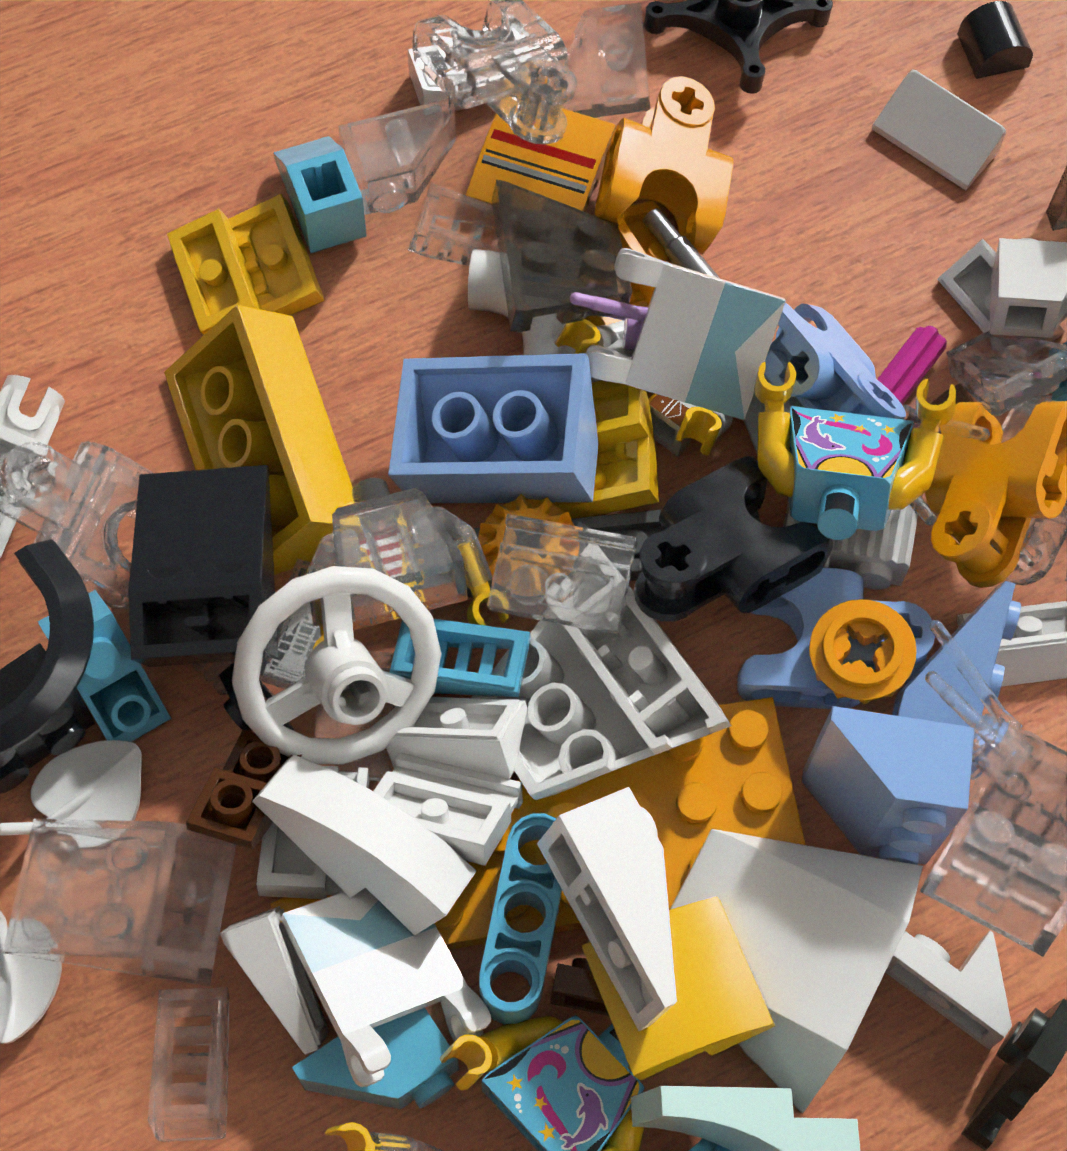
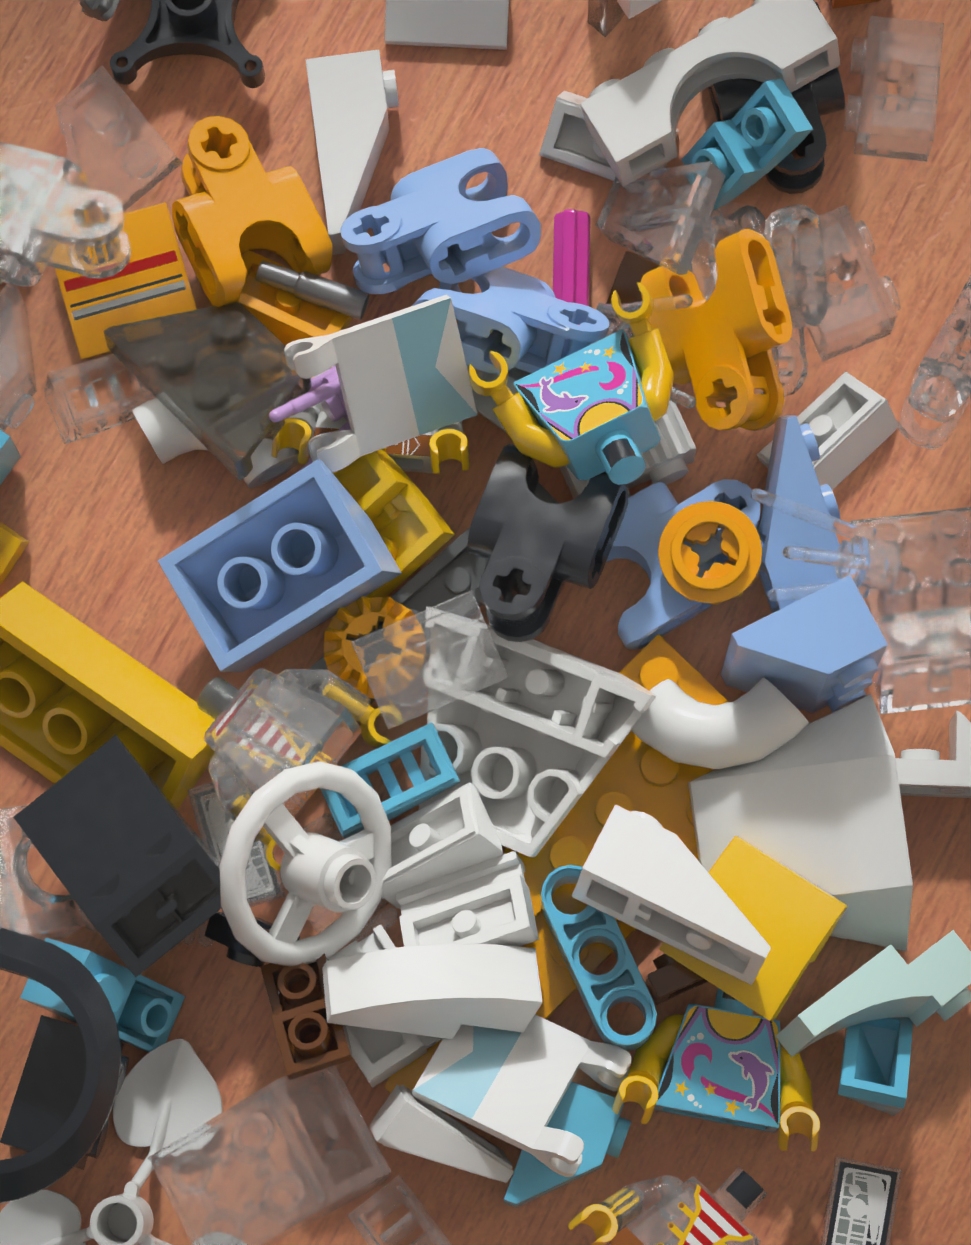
camera: 30 degrees left, 10 degrees up
(764, 803) = (719, 733): none -> white cylinder
(795, 167) = (350, 129): none -> white slope
(817, 267) = (441, 226): none -> light blue piece

